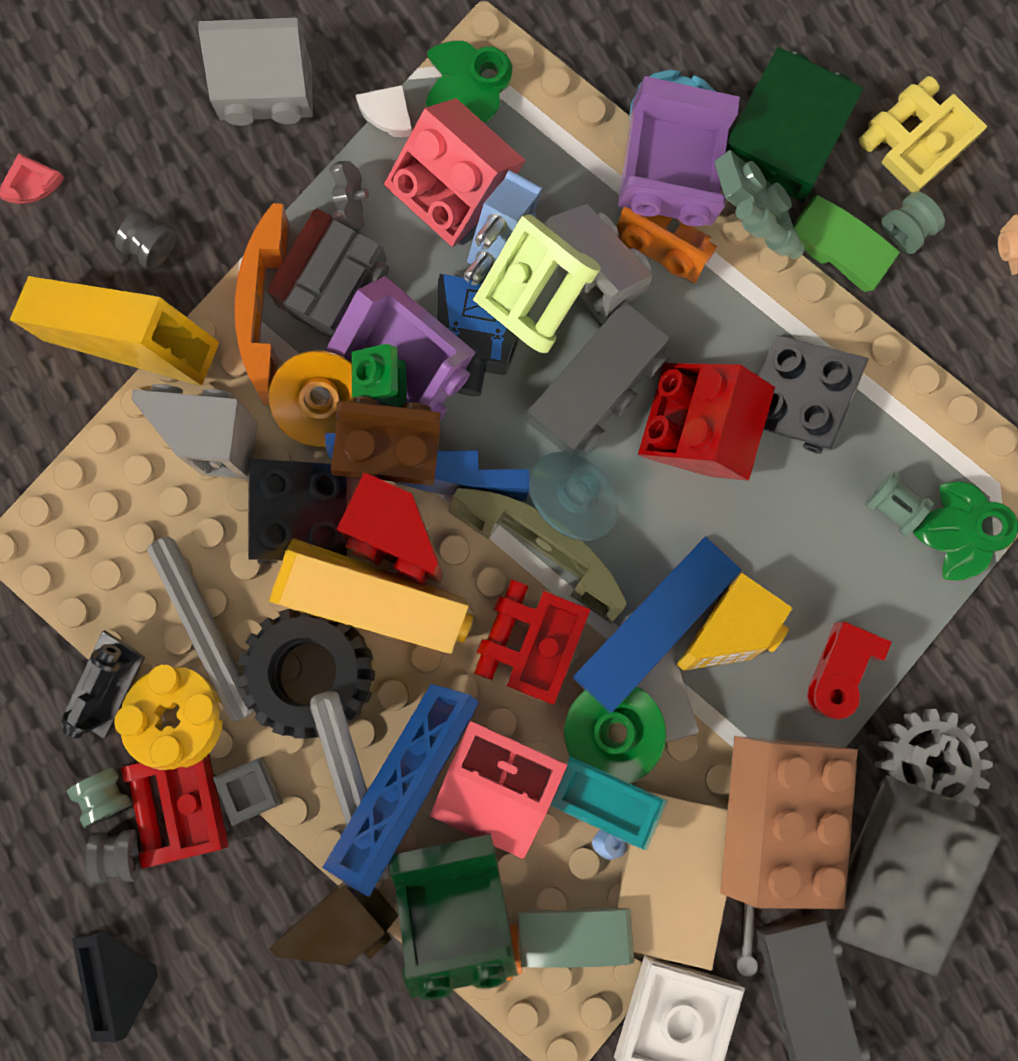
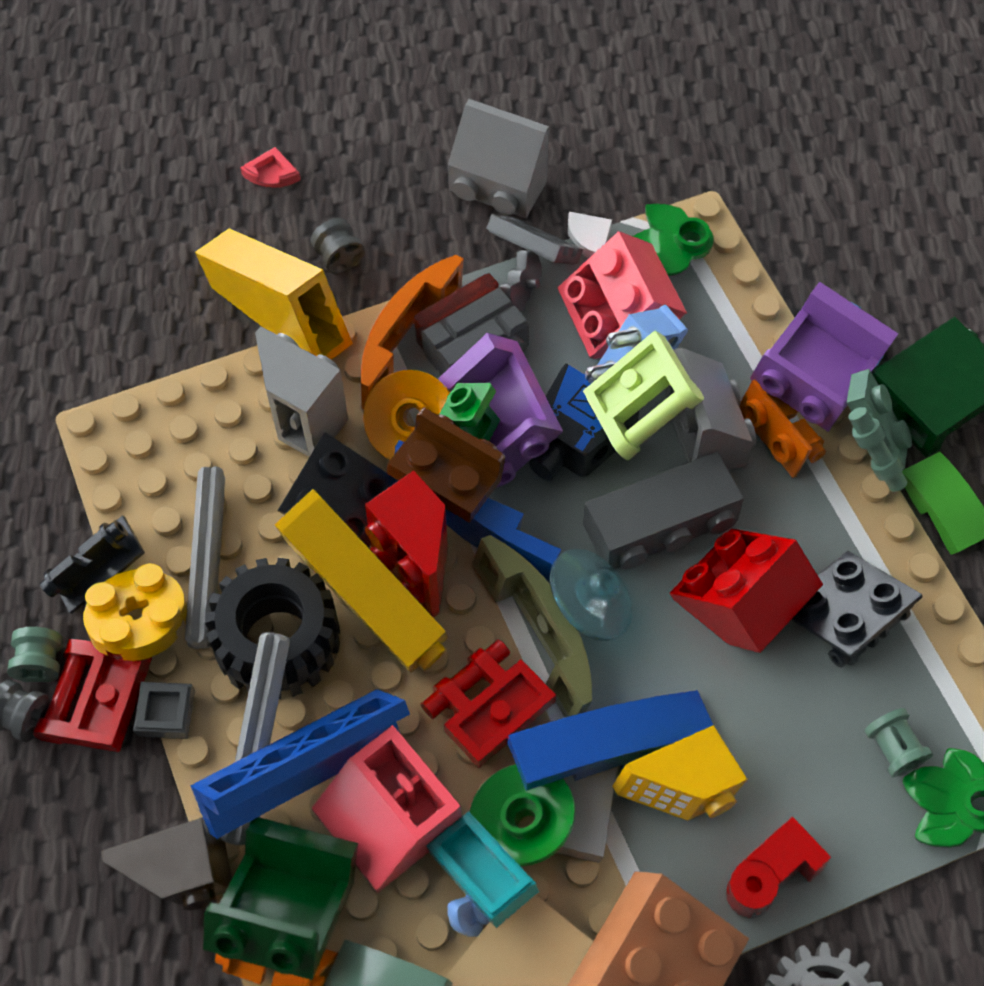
camera: 25 degrees right, 20 degrees down
(337, 143) = (534, 239): none -> dark grey tile

